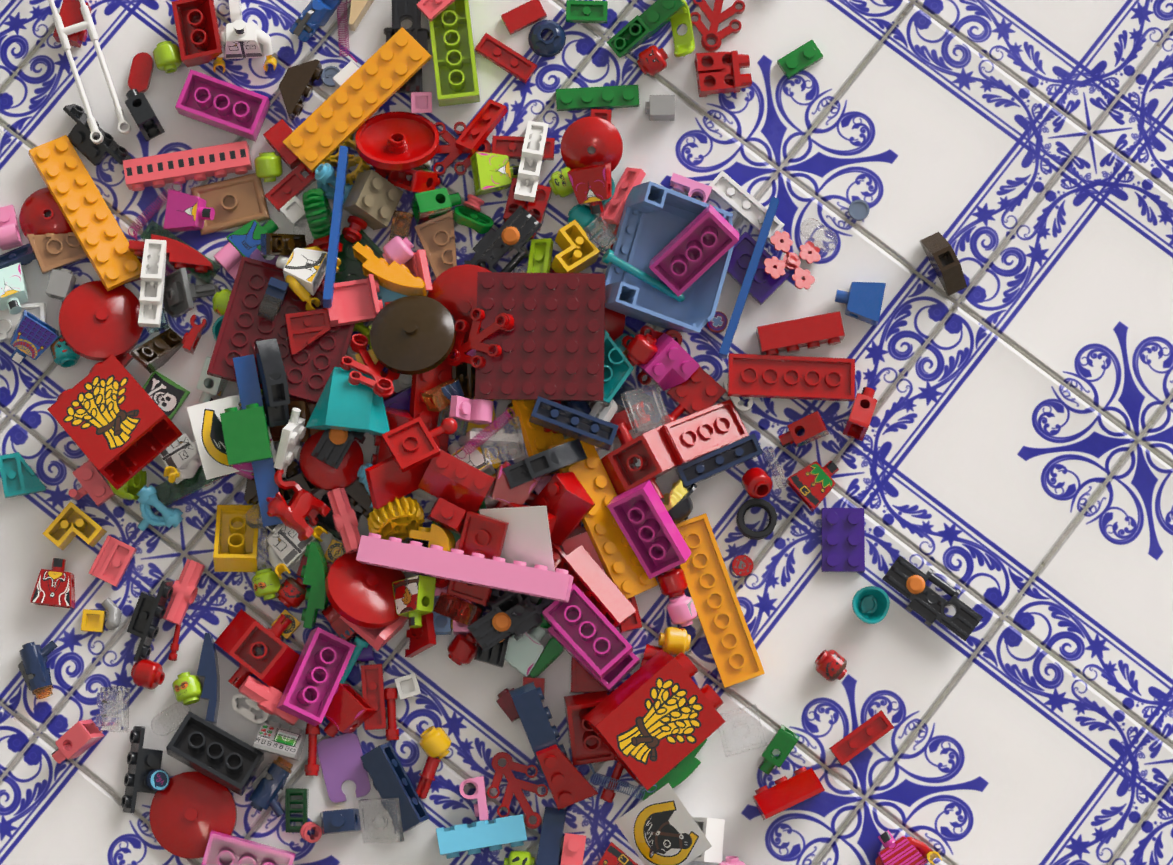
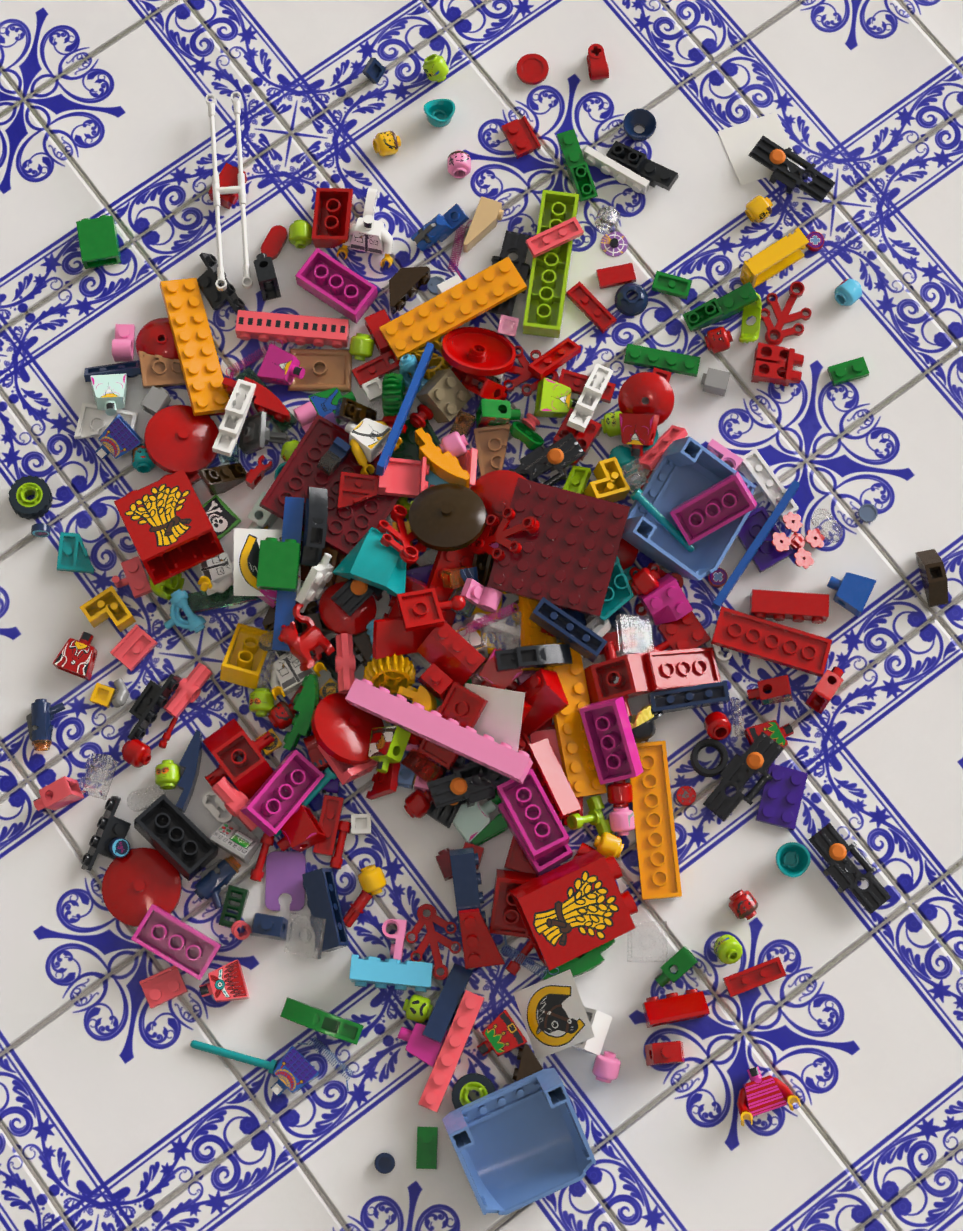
camera: 15 degrees right, 5 degrees down
(651, 614) = (594, 817): none -> lime bar
(788, 842) = (664, 1053): none -> red torso
(791, 527) = (739, 771): none -> black piece
(826, 716) = (728, 949): none -> lime head

